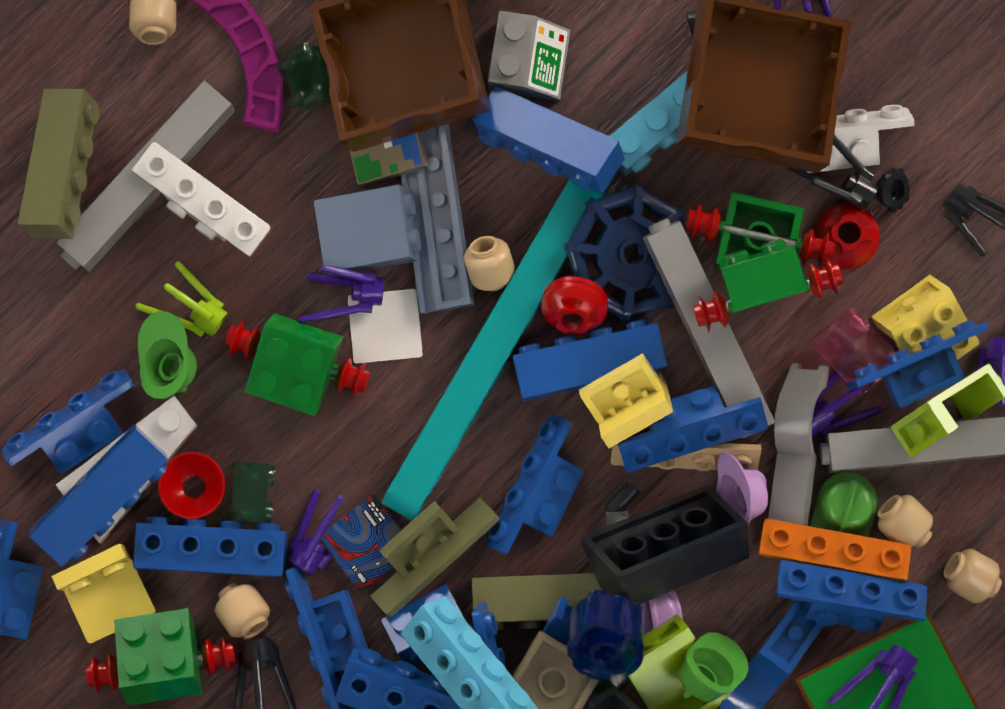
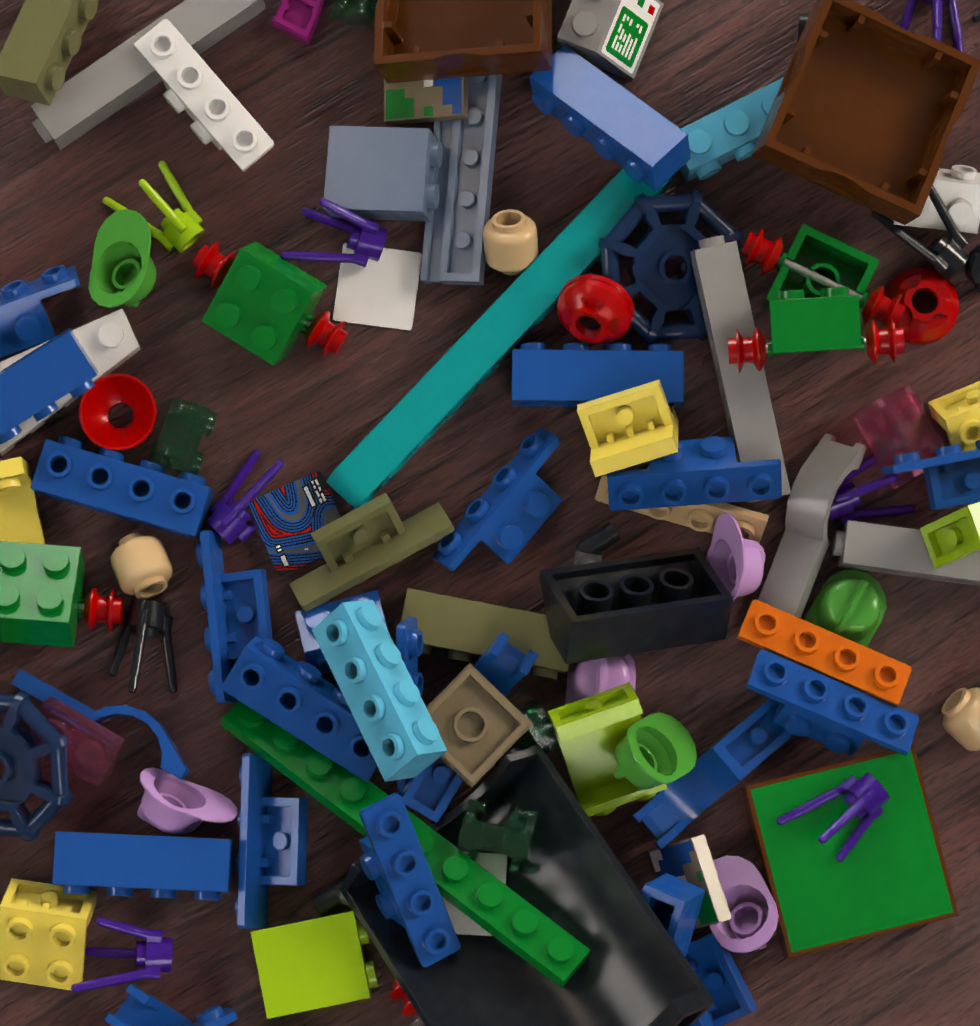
camera: 10 degrees right, 0 degrees up
(606, 636) = (542, 685): clear blue brick -> none
(905, 521) = (912, 639): tan head -> none

